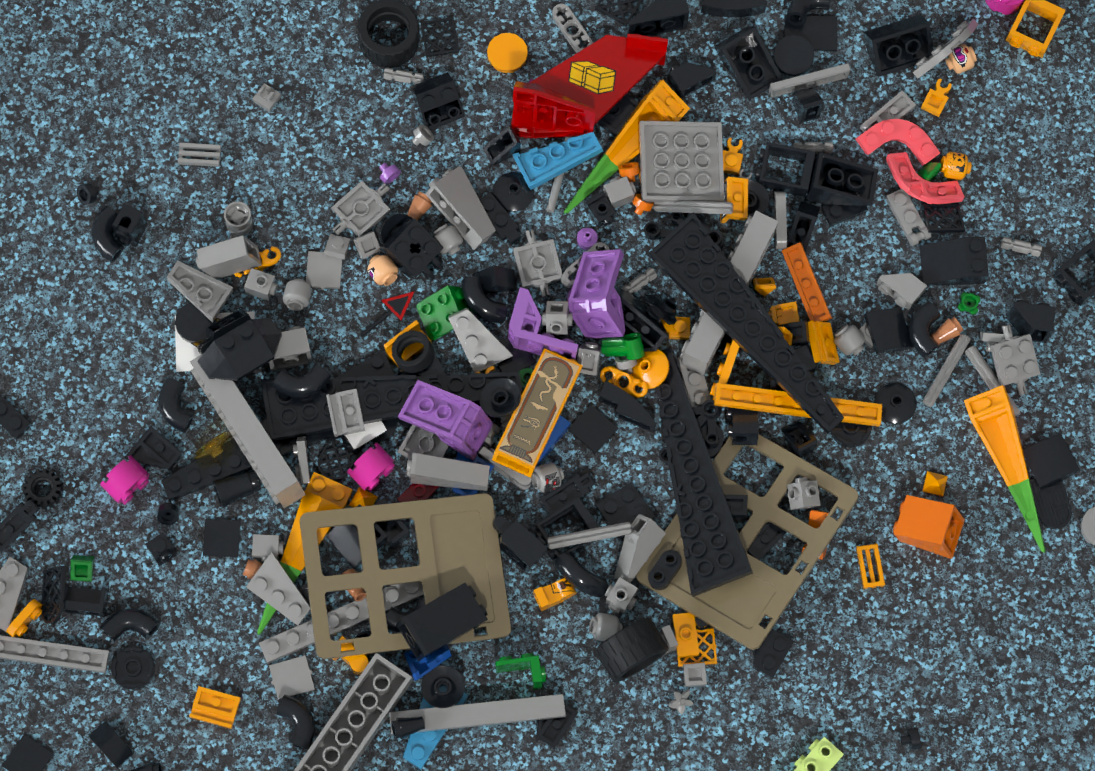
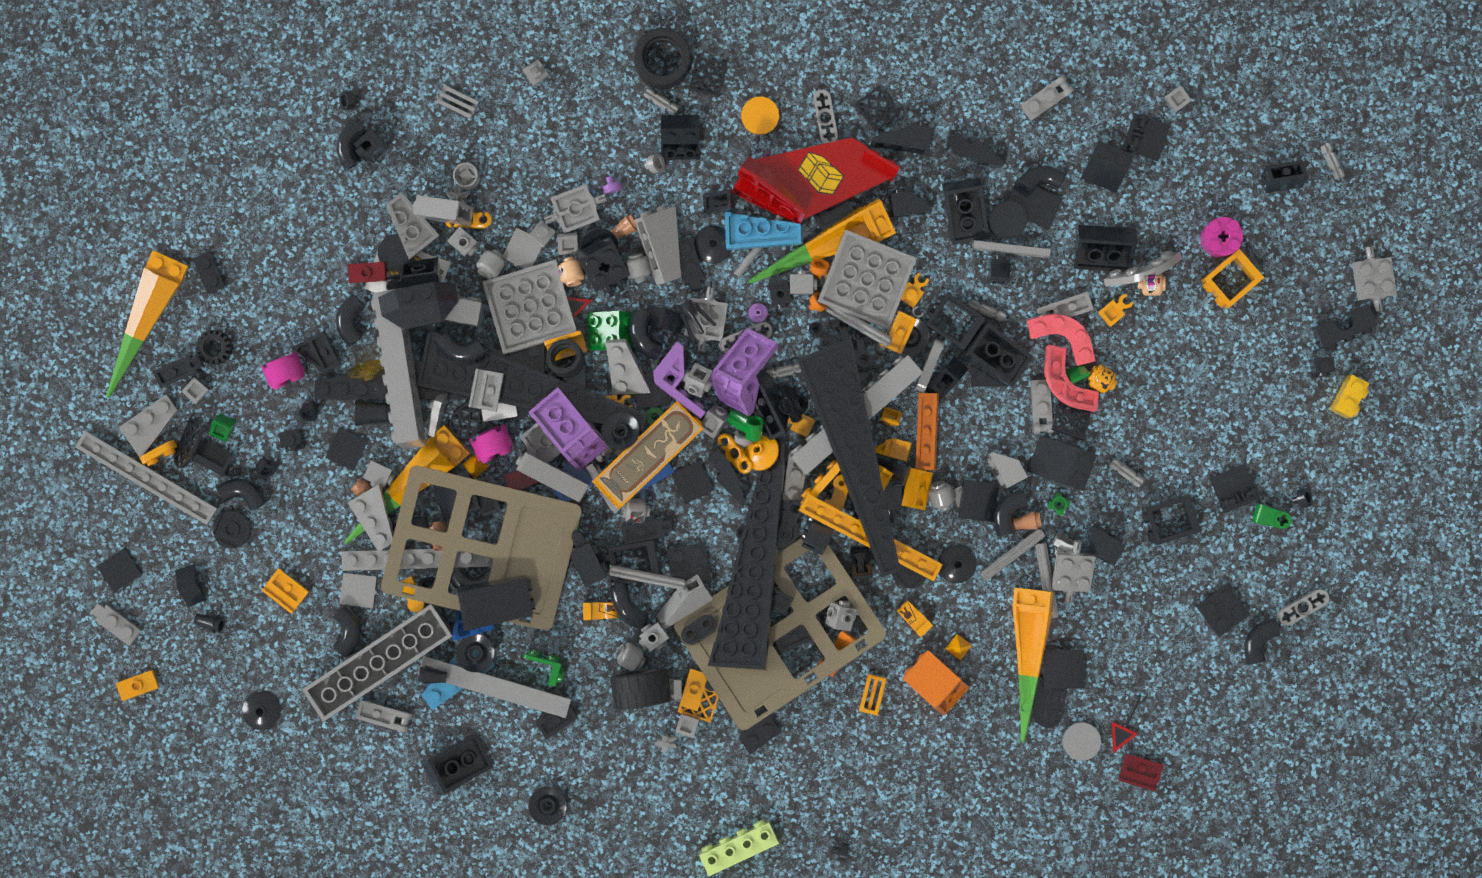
camera: 30 degrees right, 15 degrees up
(39, 540) = (195, 390): none -> light grey plate
(144, 589) = (265, 468): none -> black tile
(173, 352) = (367, 272): none -> dark red plate
(353, 320) = (529, 307): none -> light grey plate
(519, 258) = (689, 311): none -> black plant
(745, 373) = (839, 493): none -> light orange leg
(878, 471) = (914, 618): none -> light orange leg

